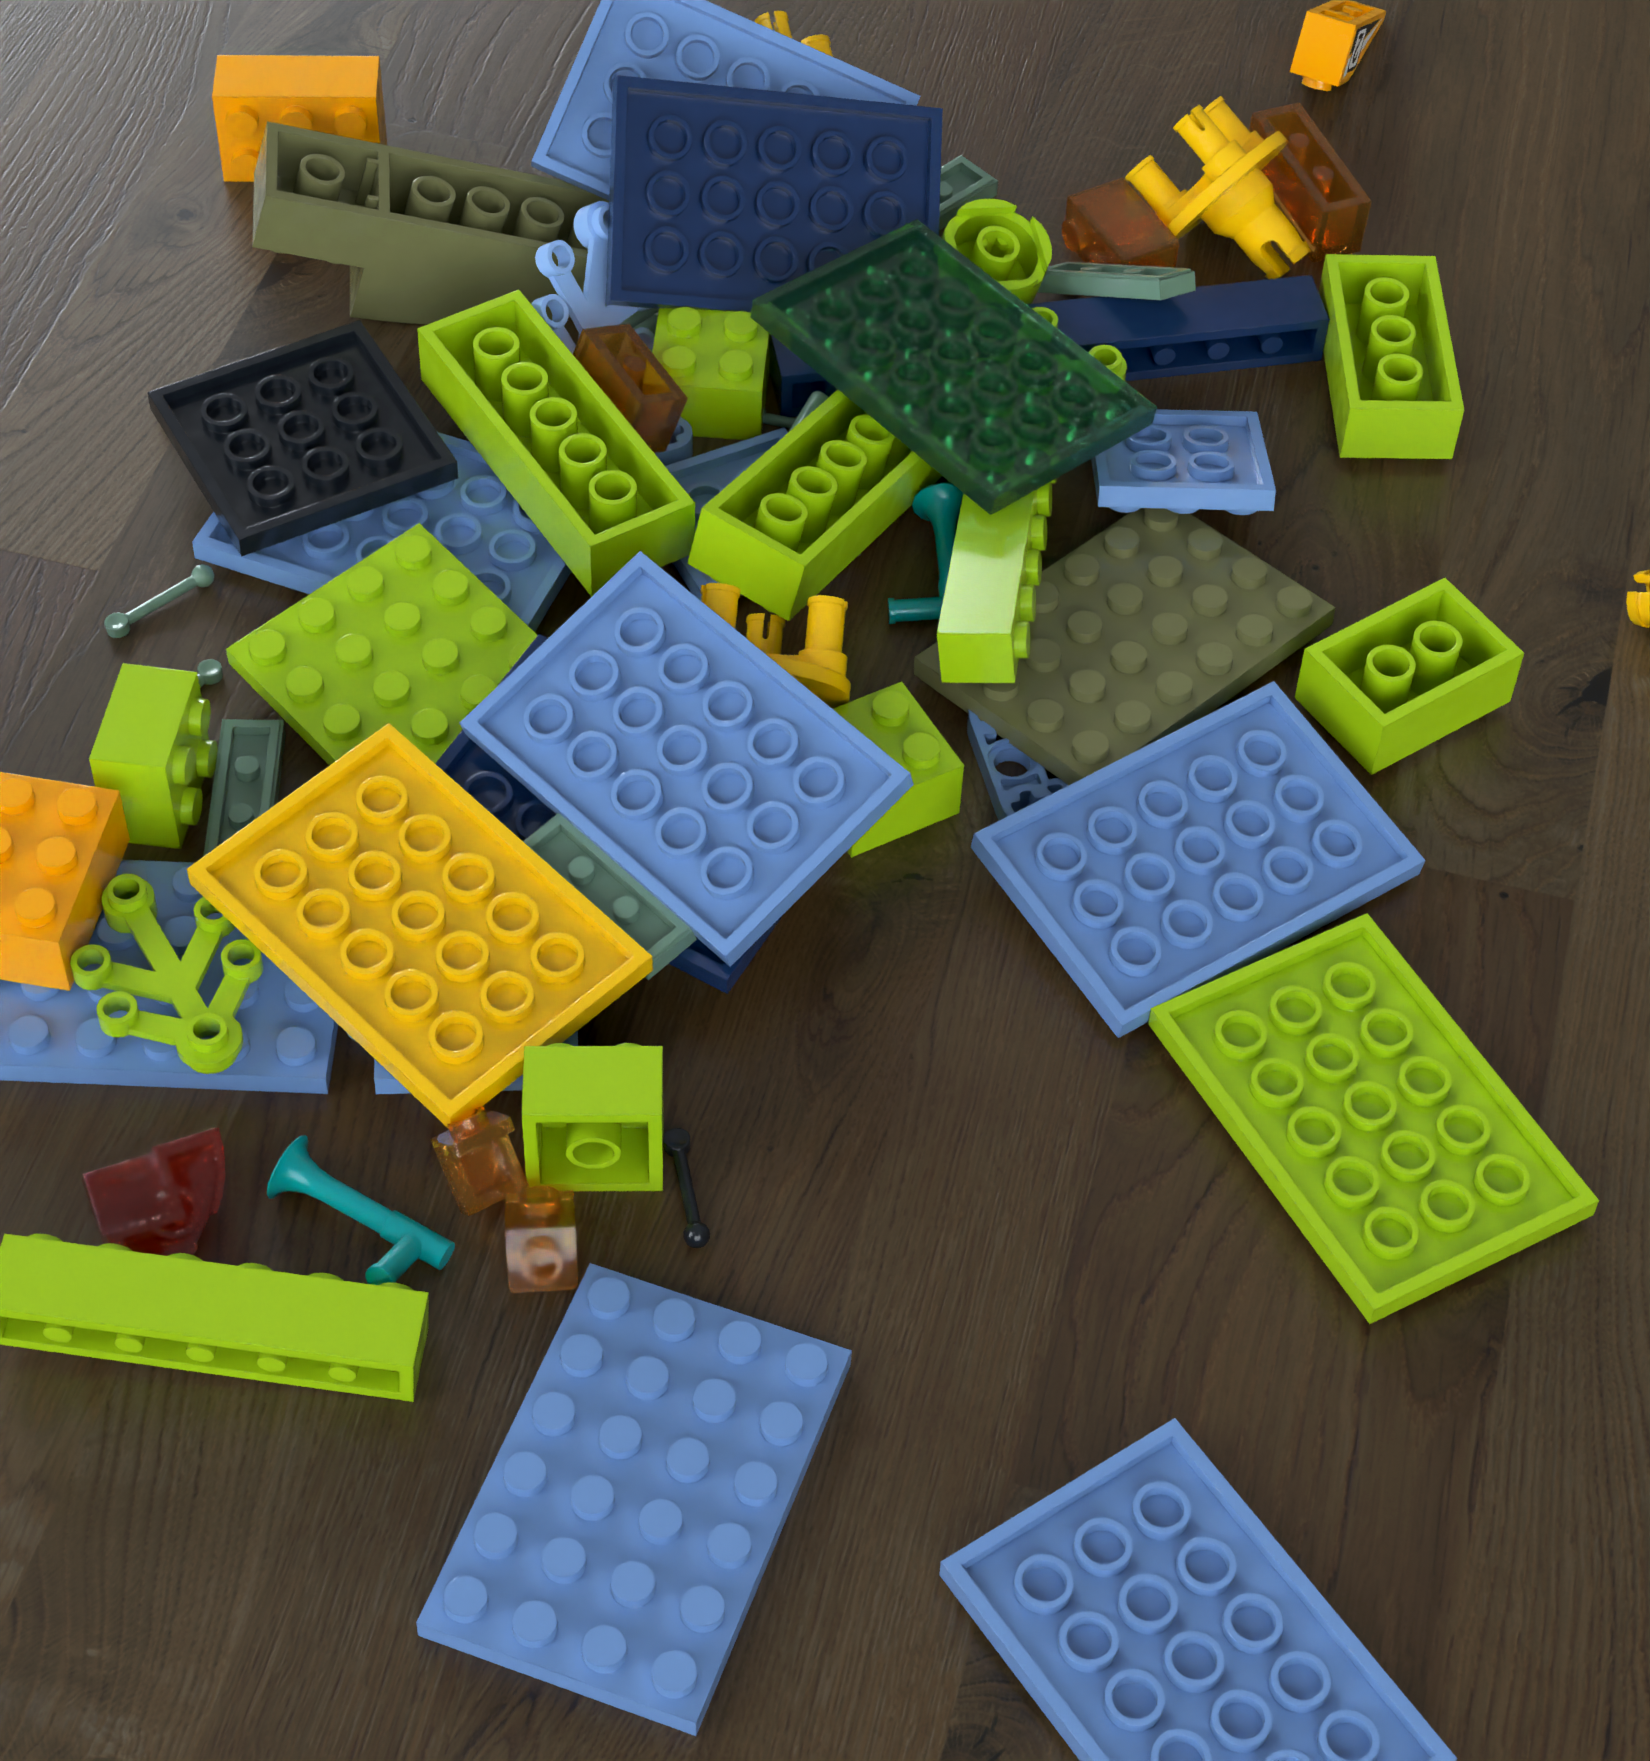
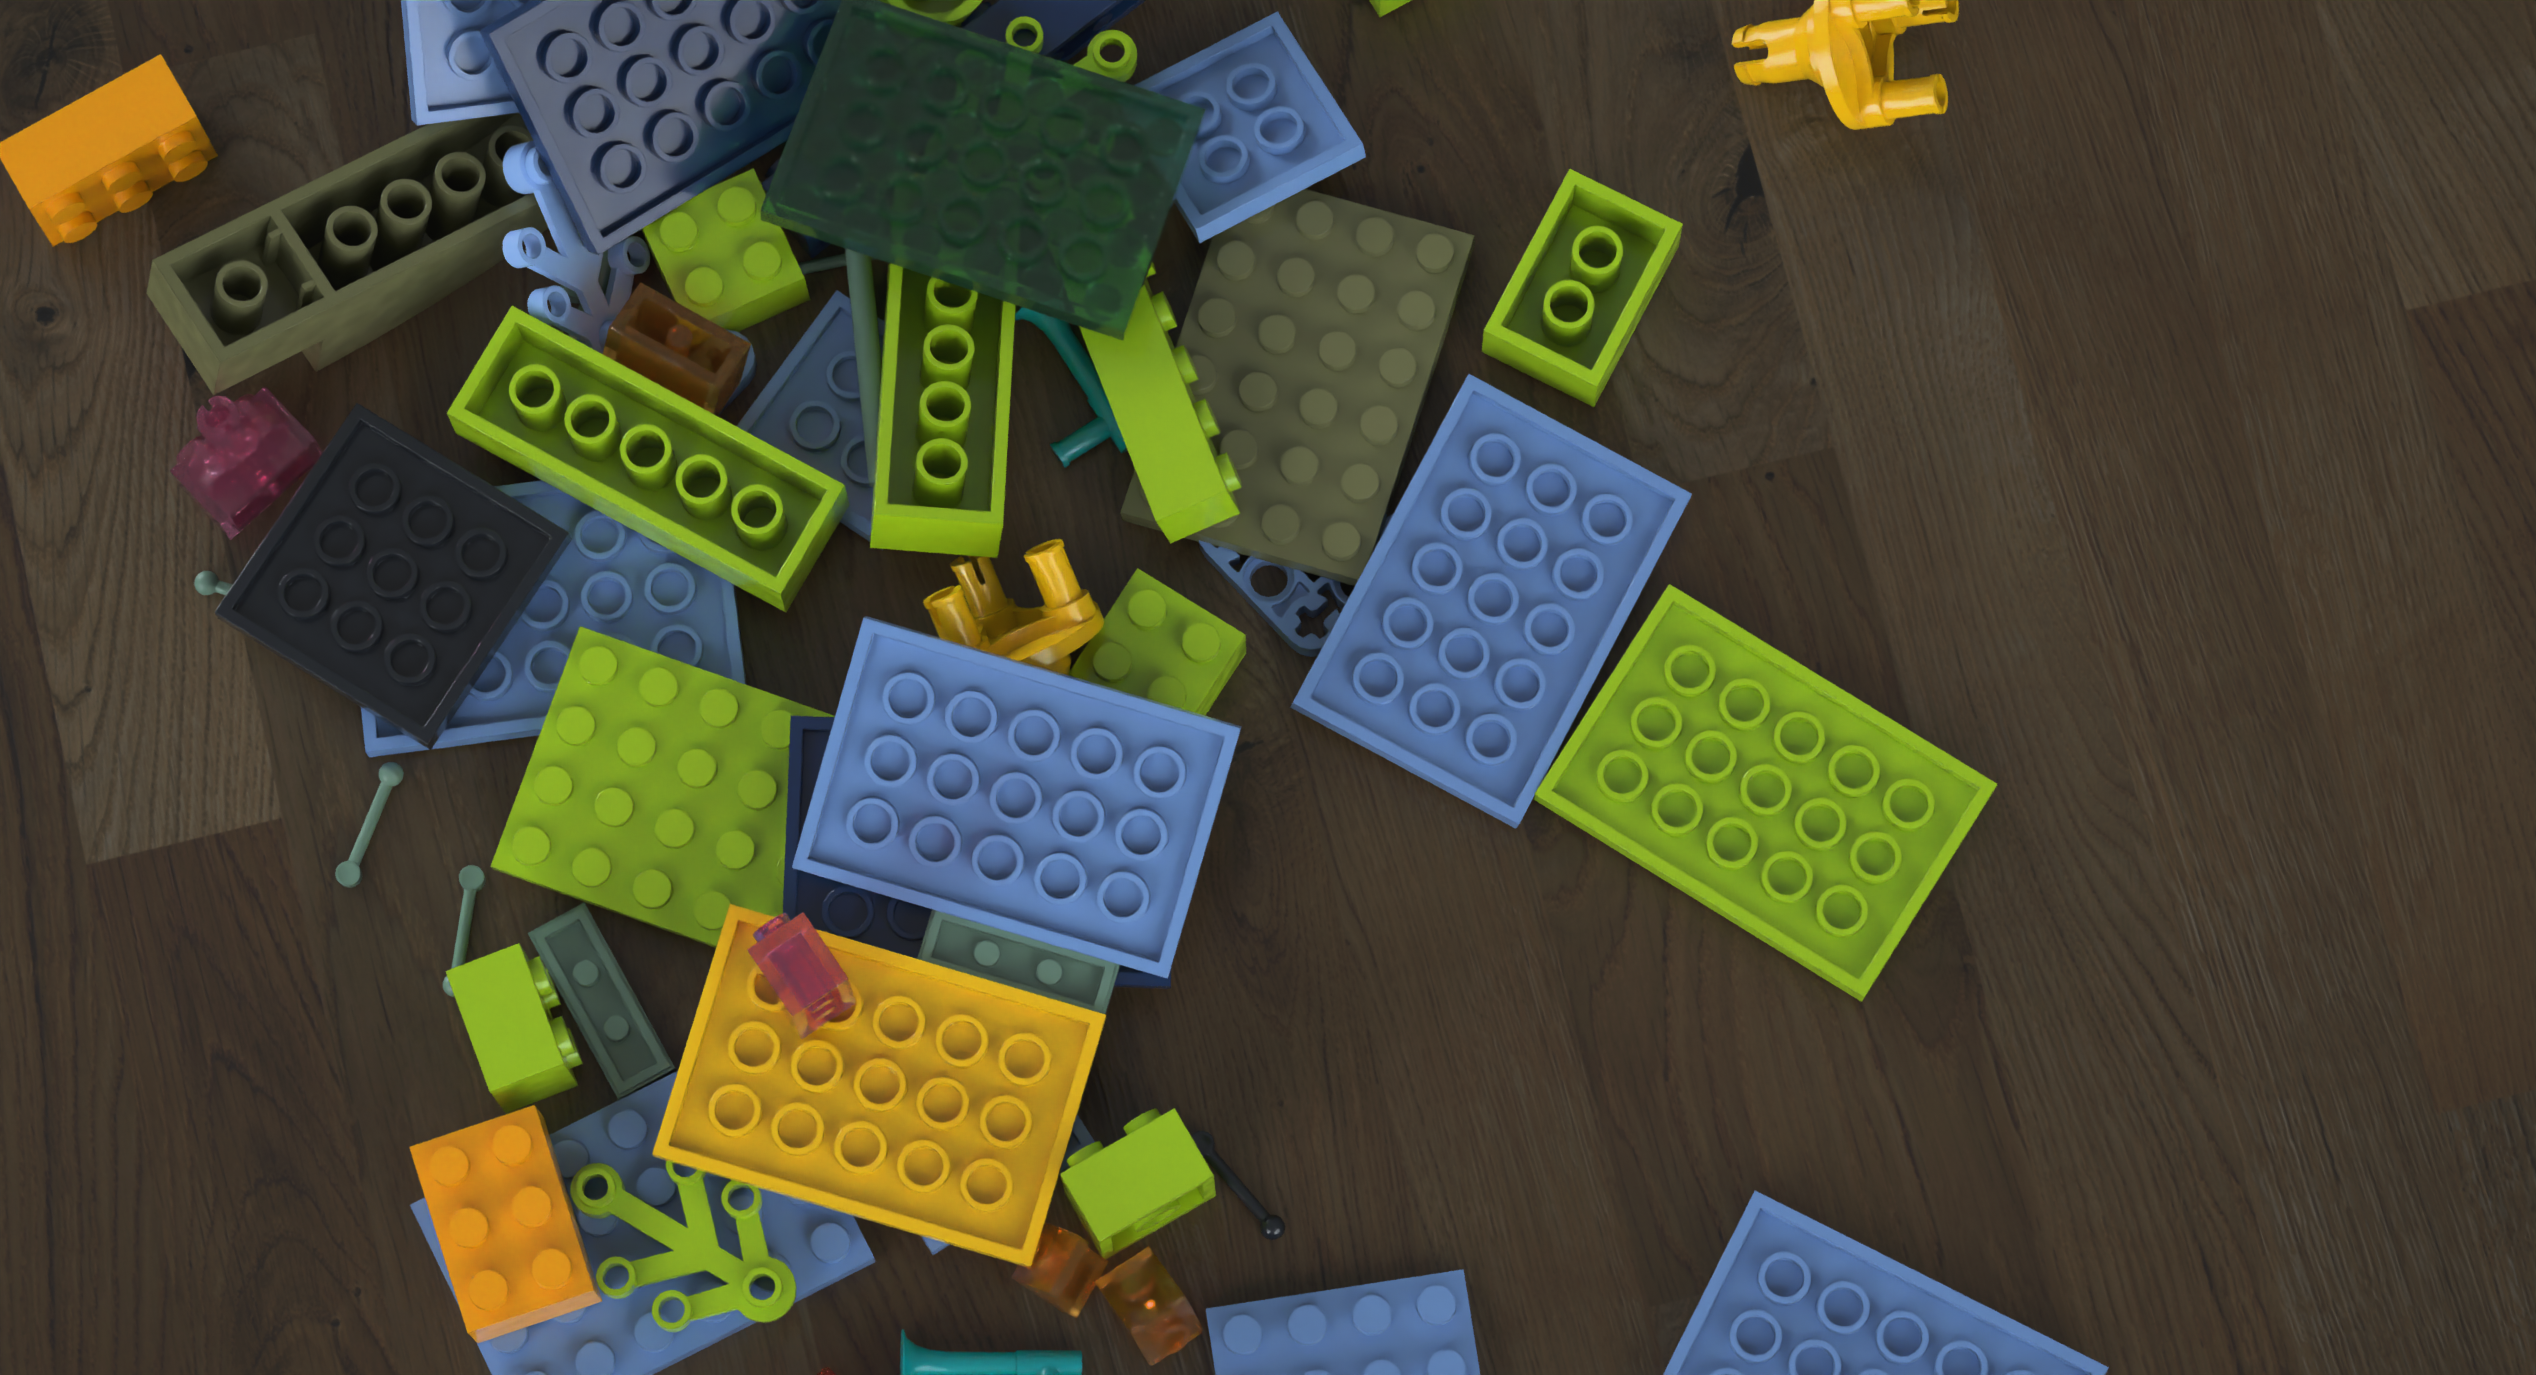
camera: 25 degrees left, 25 degrees up
(248, 311) = (243, 458): none -> clear pink brick
(399, 752) = (800, 973): none -> clear pink brick

